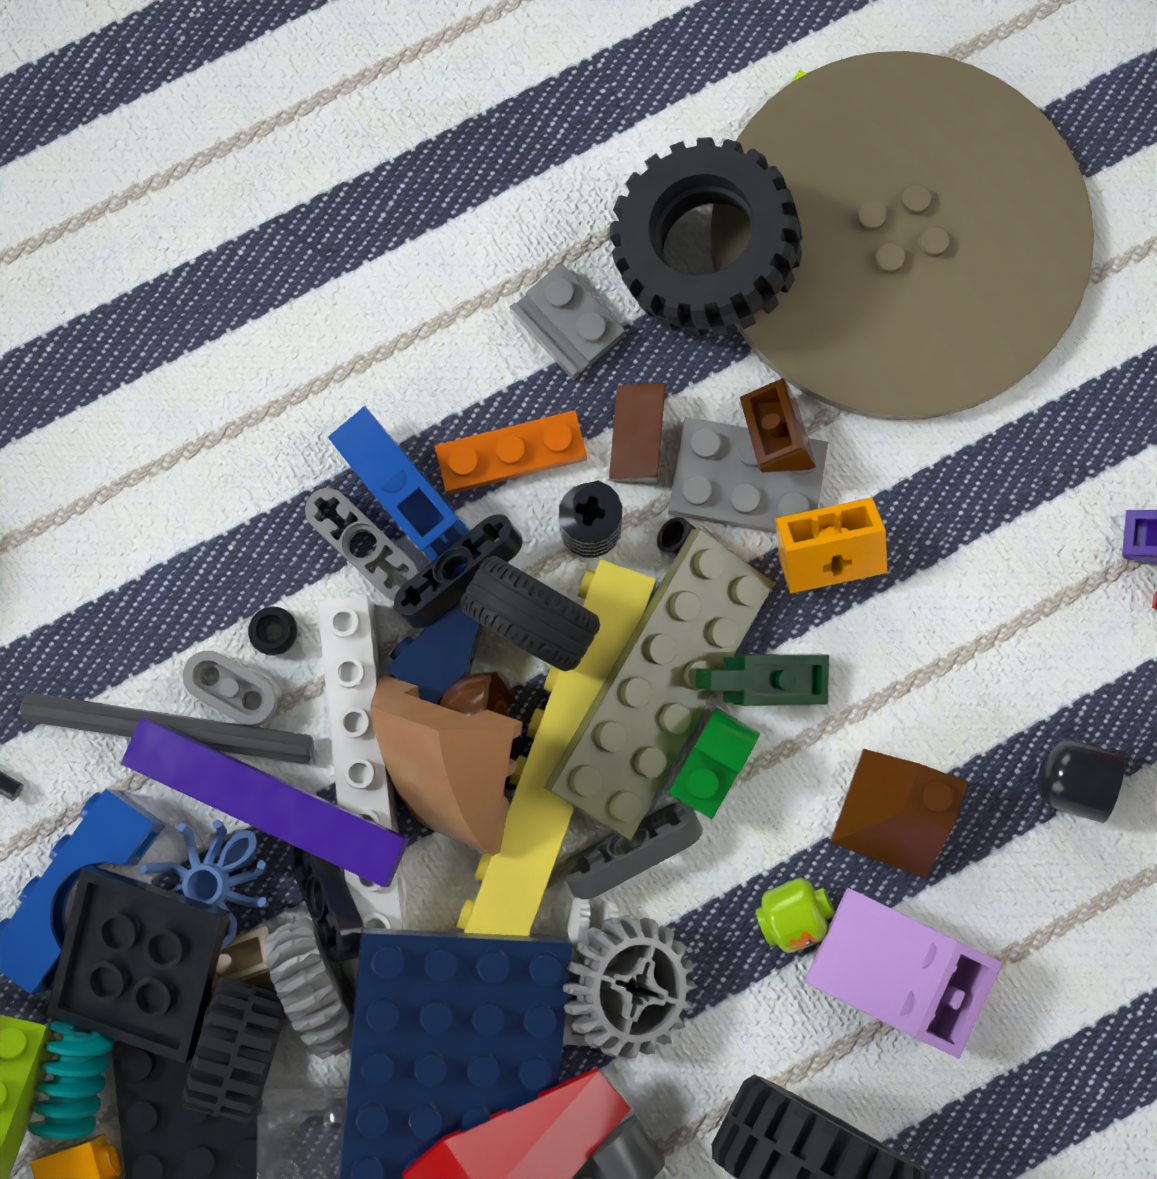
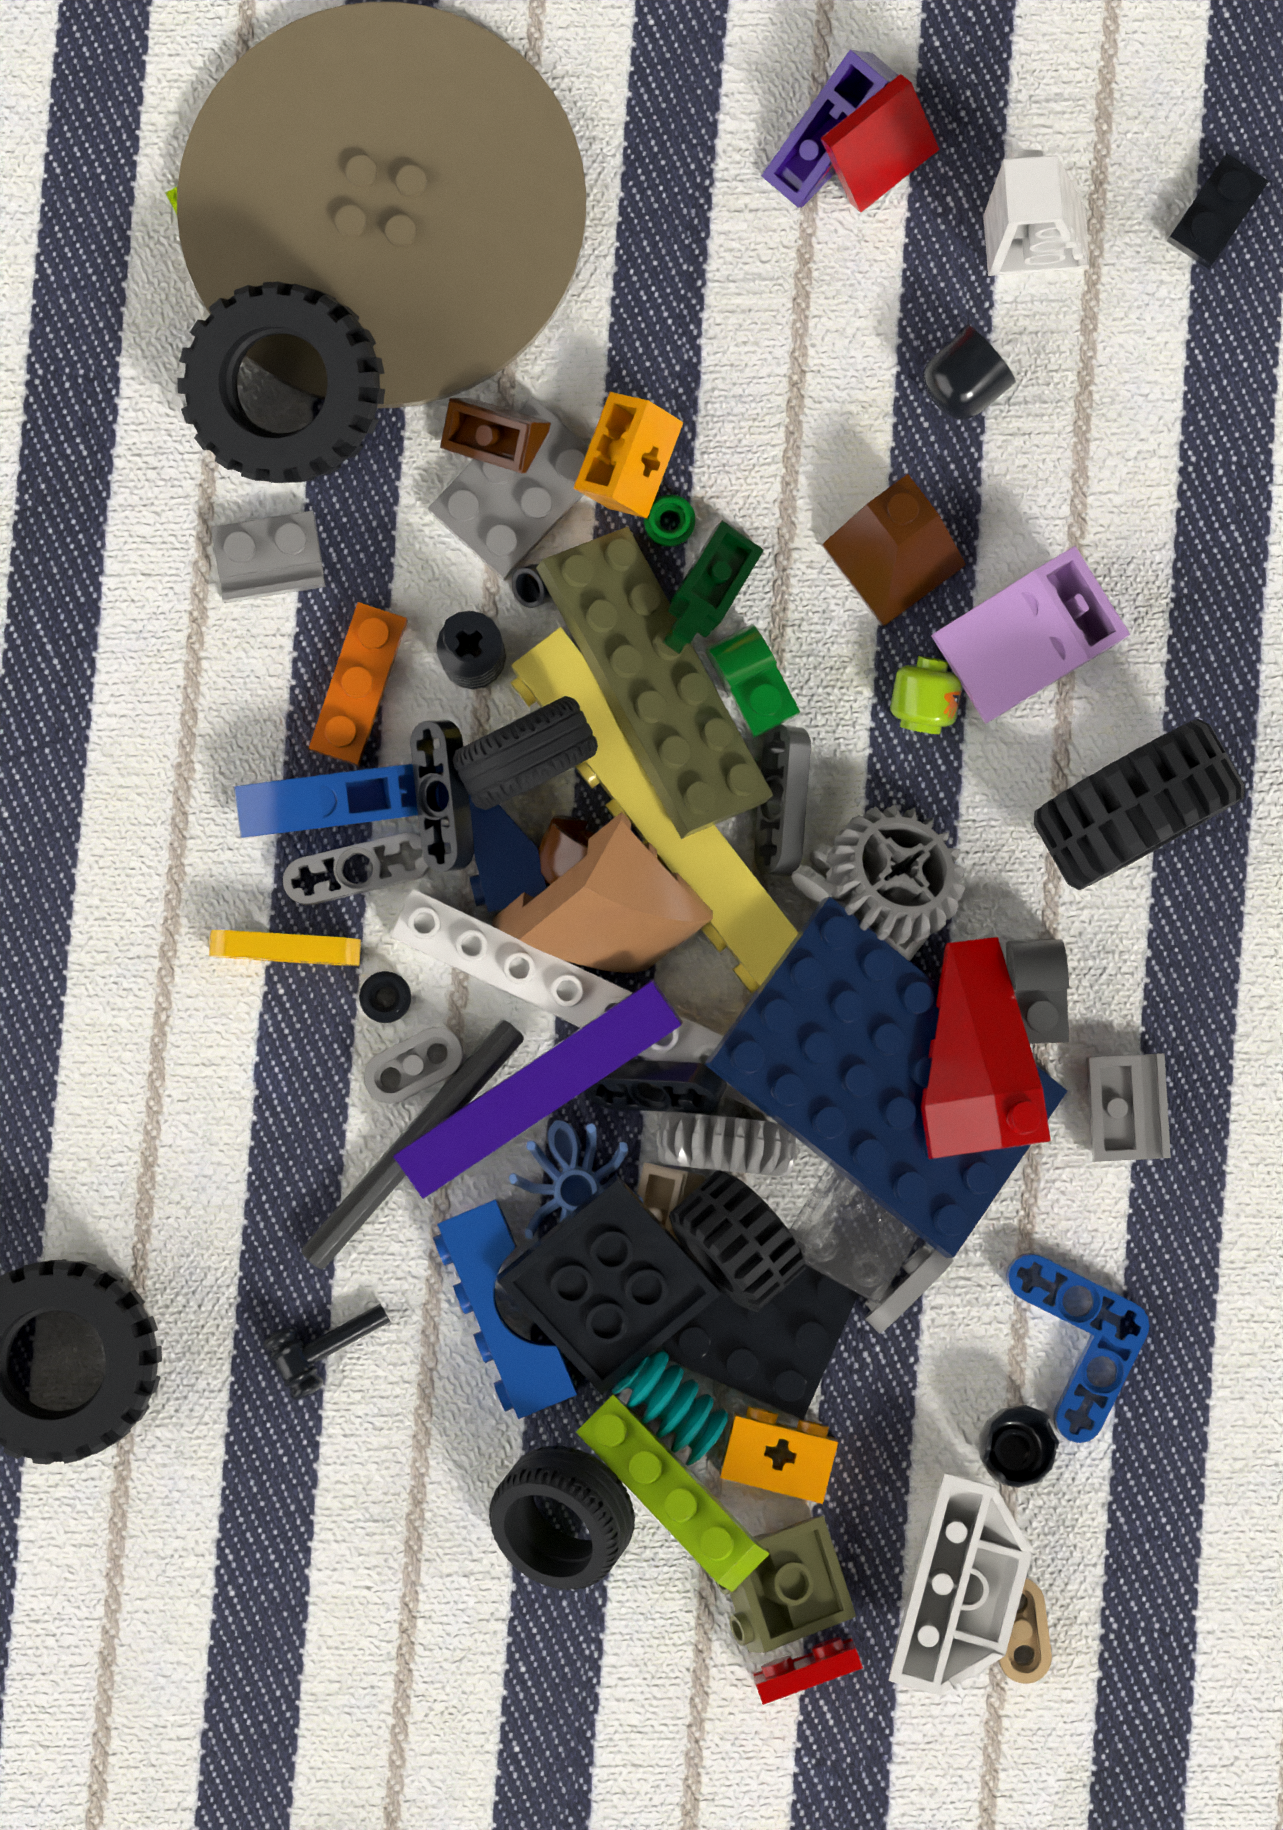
camera: 60 degrees left, 5 degrees up
(262, 527) = (285, 947): none -> yellow beam
(637, 433) = (414, 559): reddish brown slope -> none
(812, 603) = (674, 505): none -> green plate

